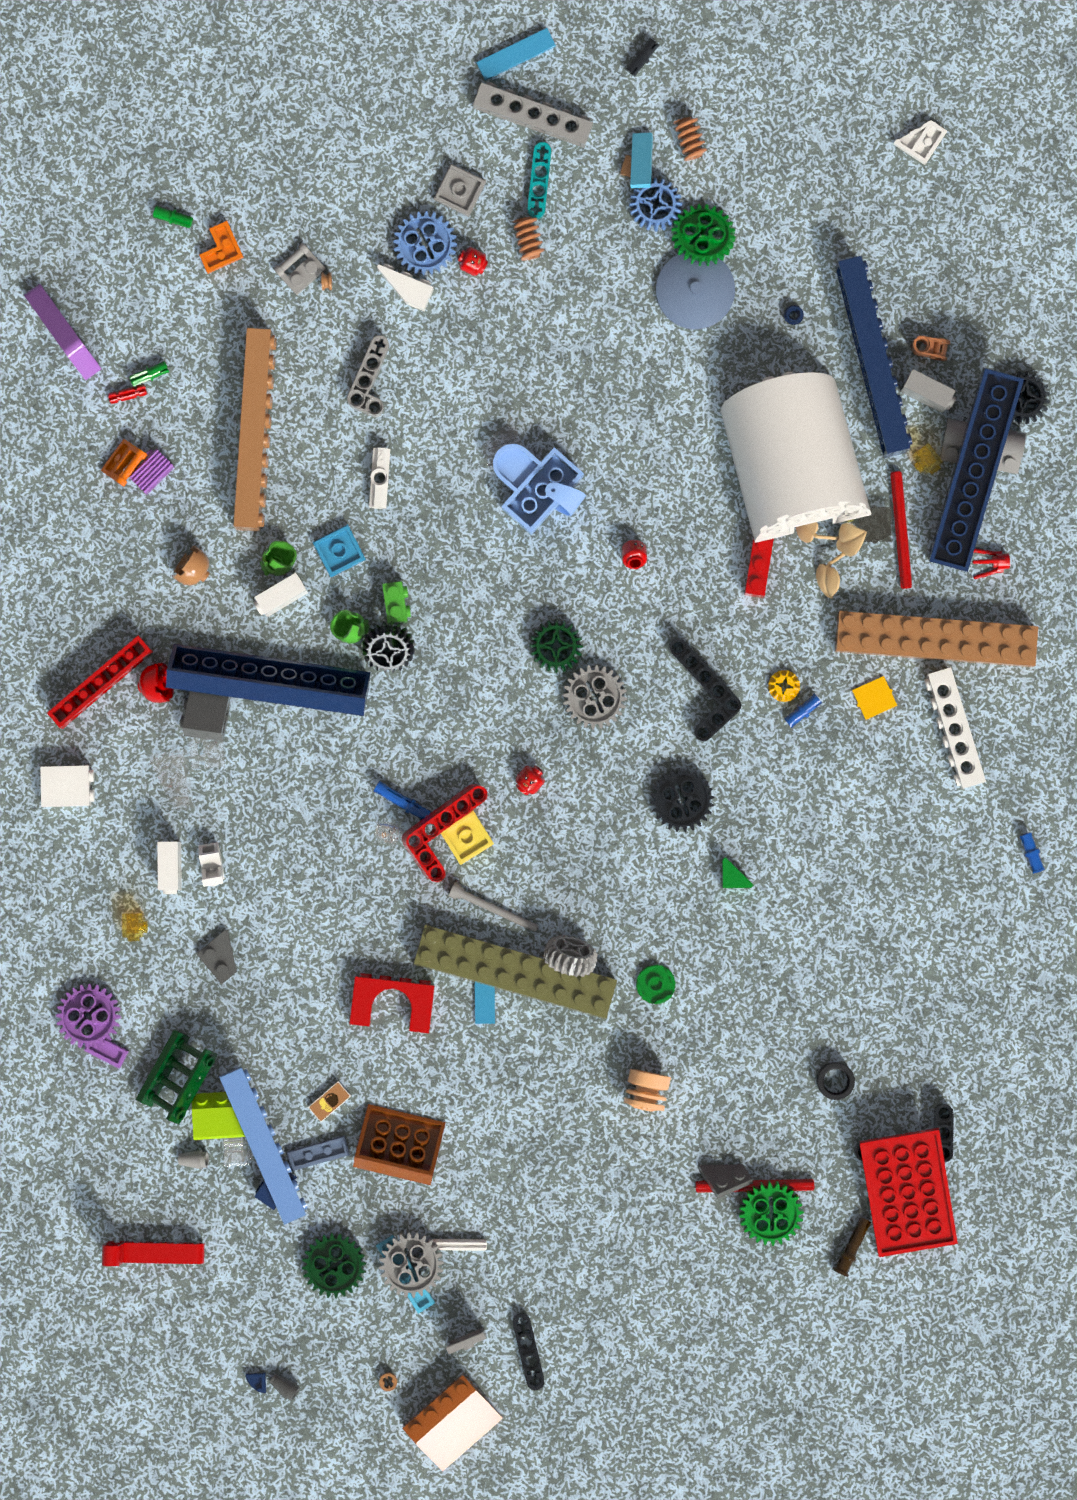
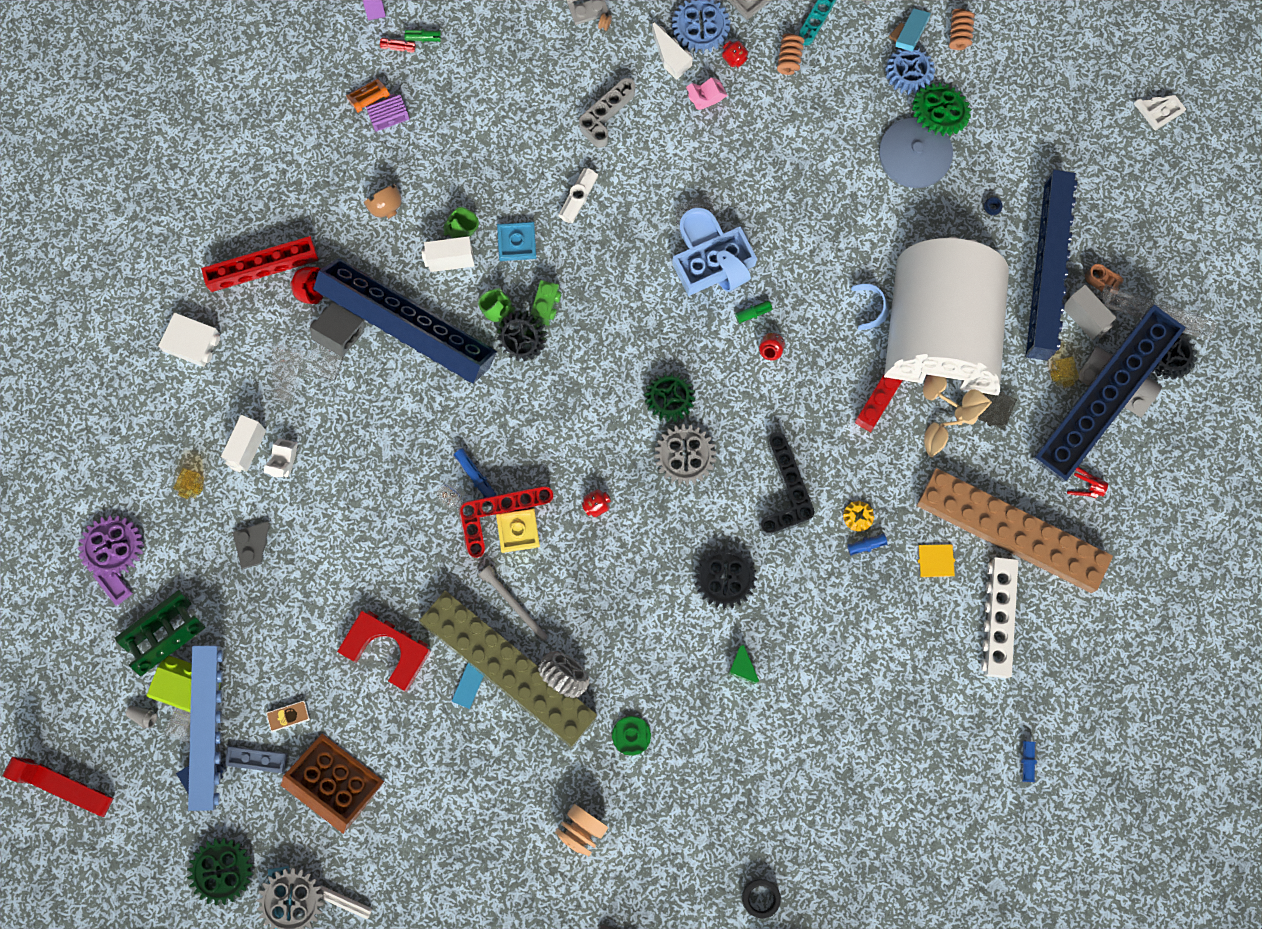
camera: 20 degrees right, 10 degrees down
(253, 430) = (488, 112): medium nougat brick -> none
(462, 316) = (706, 94): none -> bright pink brick
(601, 525) = (753, 312): none -> green axle
(728, 464) = (885, 311): none -> light blue piece
(901, 530) = (1017, 424): red axle -> none
(1006, 360) = (1138, 305): none -> clear brick

